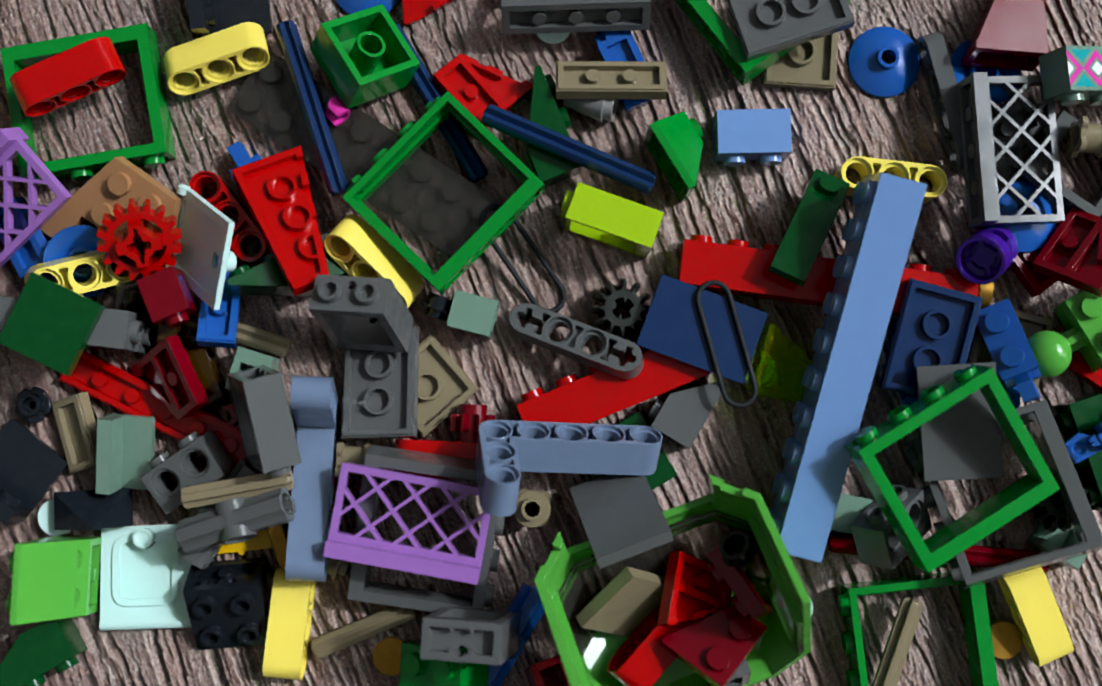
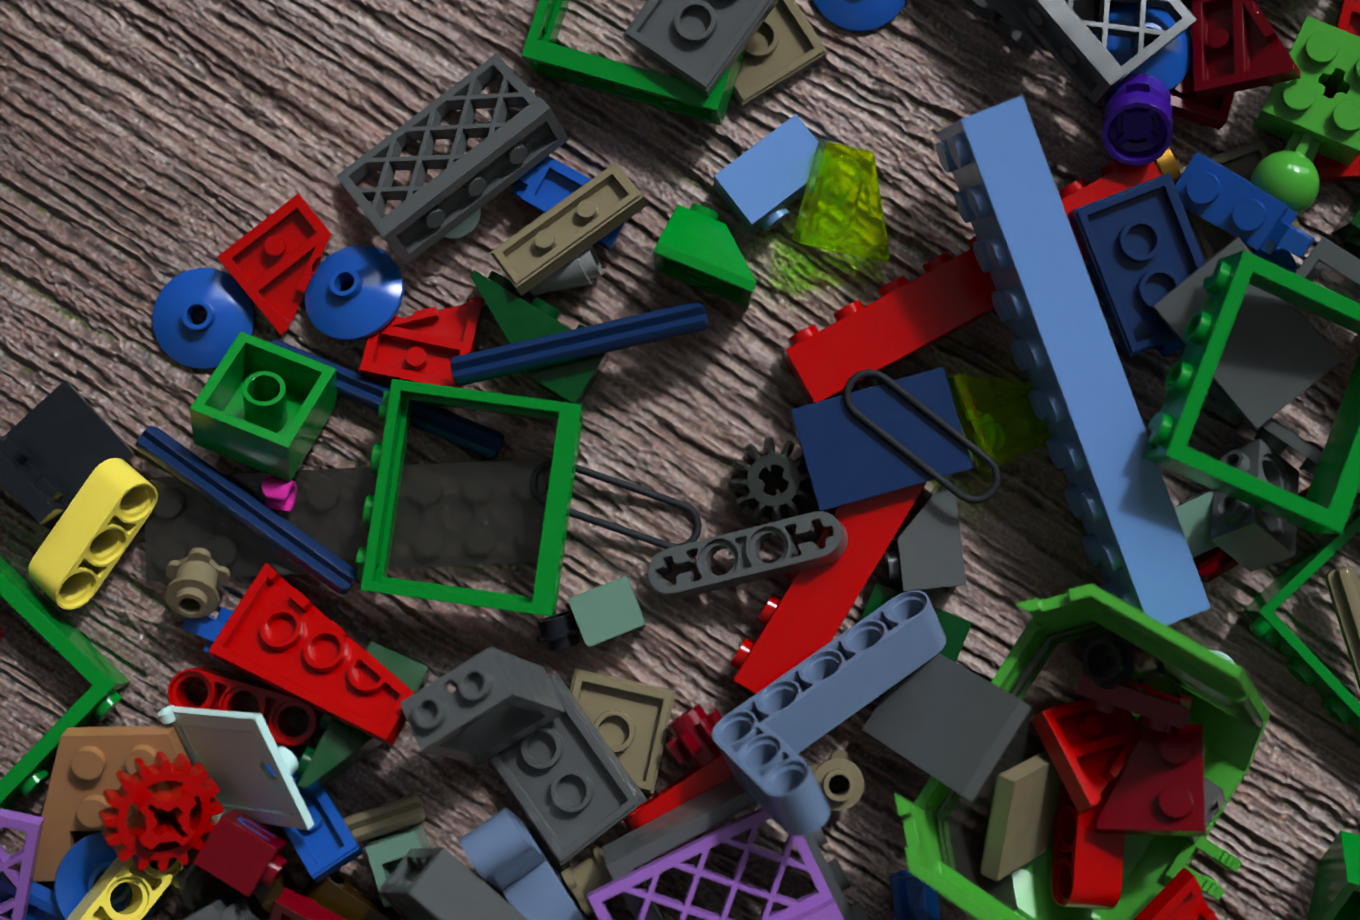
camera: 35 degrees left, 0 degrees up
(252, 127) = (195, 584): none -> dark tan brick
(366, 254) = (444, 634): light yellow beam -> none
(466, 40) = (363, 307): none -> blue dish
(611, 219) = (687, 388): lime window -> none
(779, 180) = (843, 203): none -> clear neon green wing
(809, 227) = (916, 235): dark green slope -> none
(908, 170) = (979, 93): light yellow beam -> none

